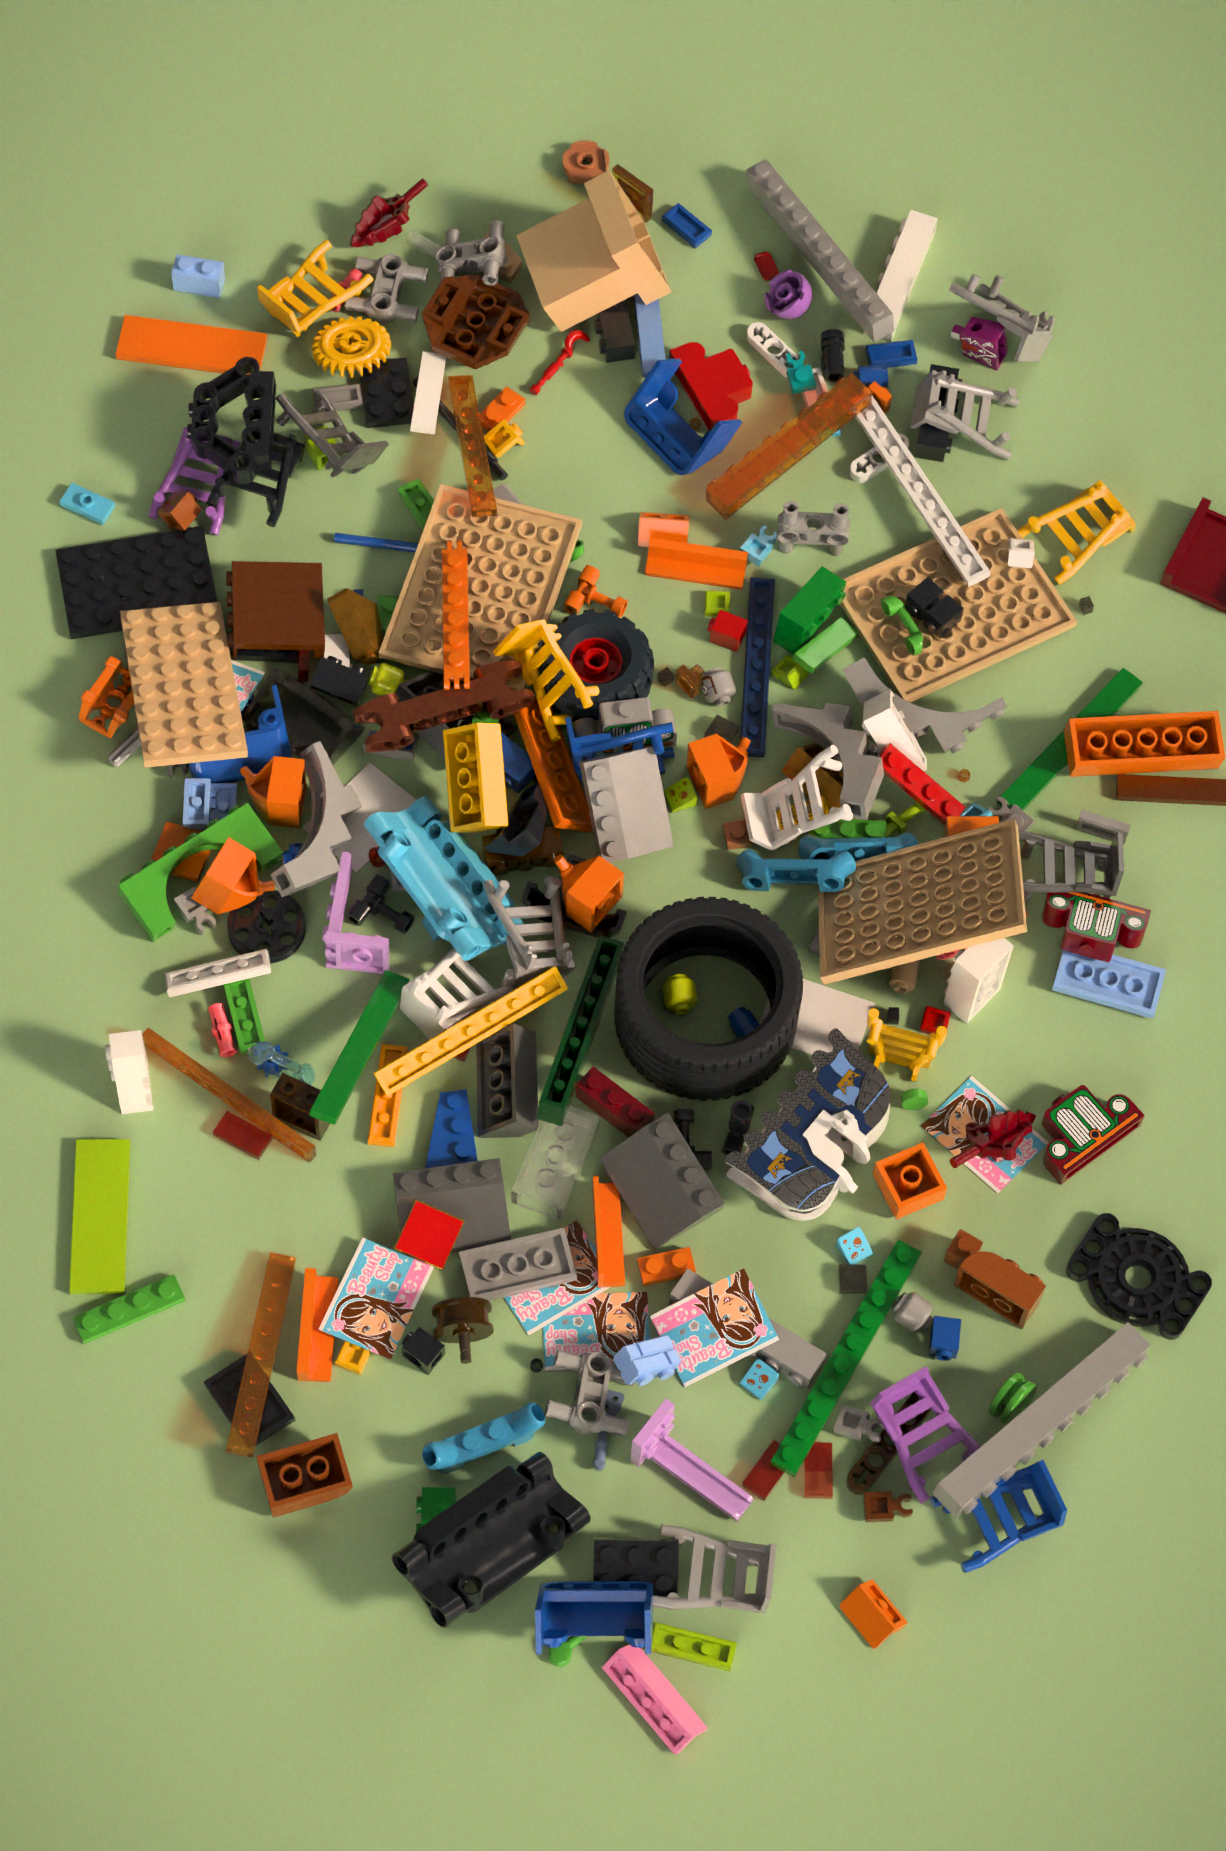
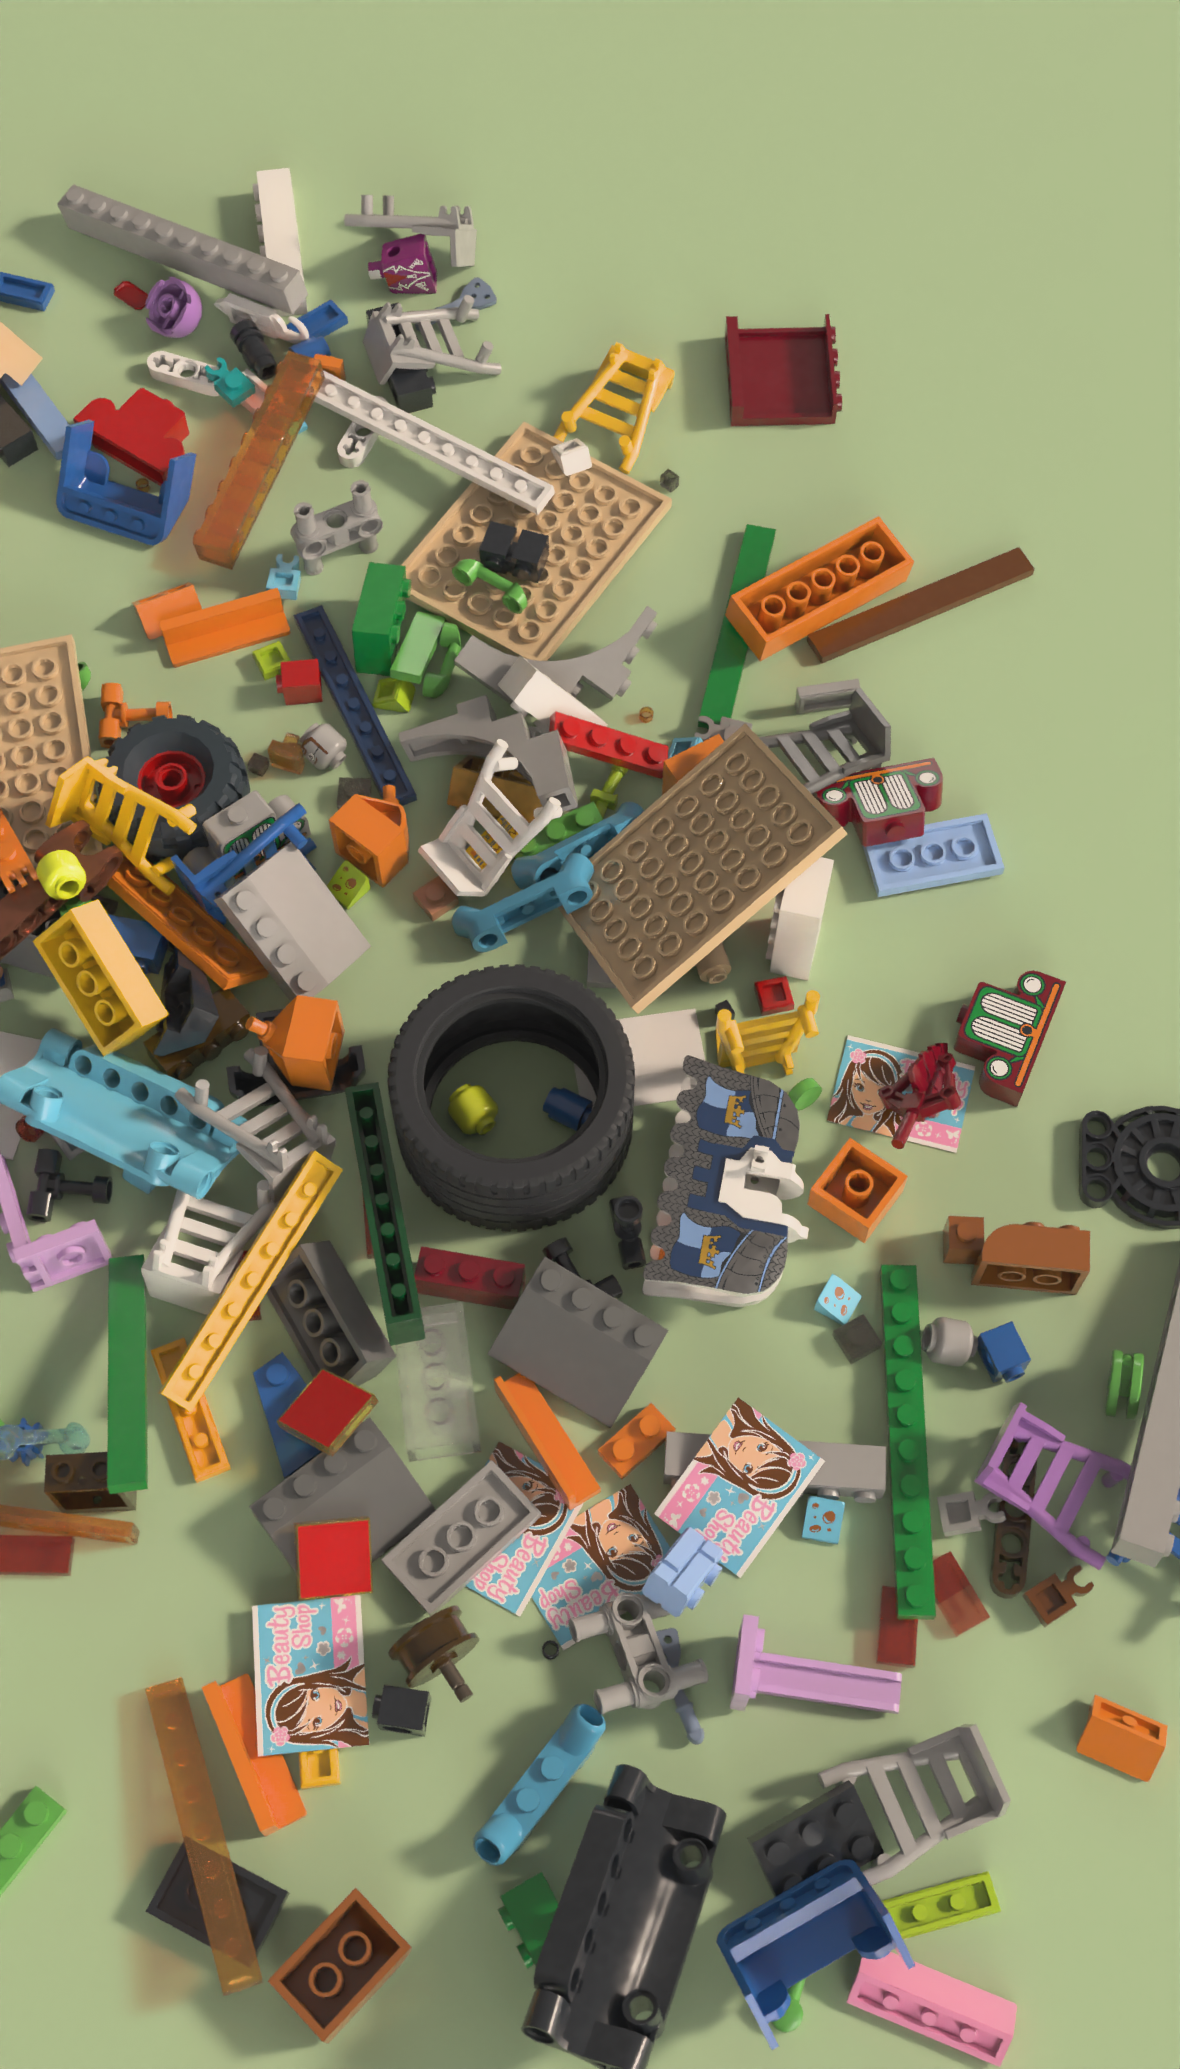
camera: 25 degrees left, 0 degrees up
(474, 1140) = (327, 1411): none -> red tile
(484, 694) = (61, 874): none -> neon yellow head
(824, 679) = (435, 683): none -> bright green bar
(854, 335) = (264, 316): none -> white plate
(1023, 394) = (480, 293): none -> sand blue piece

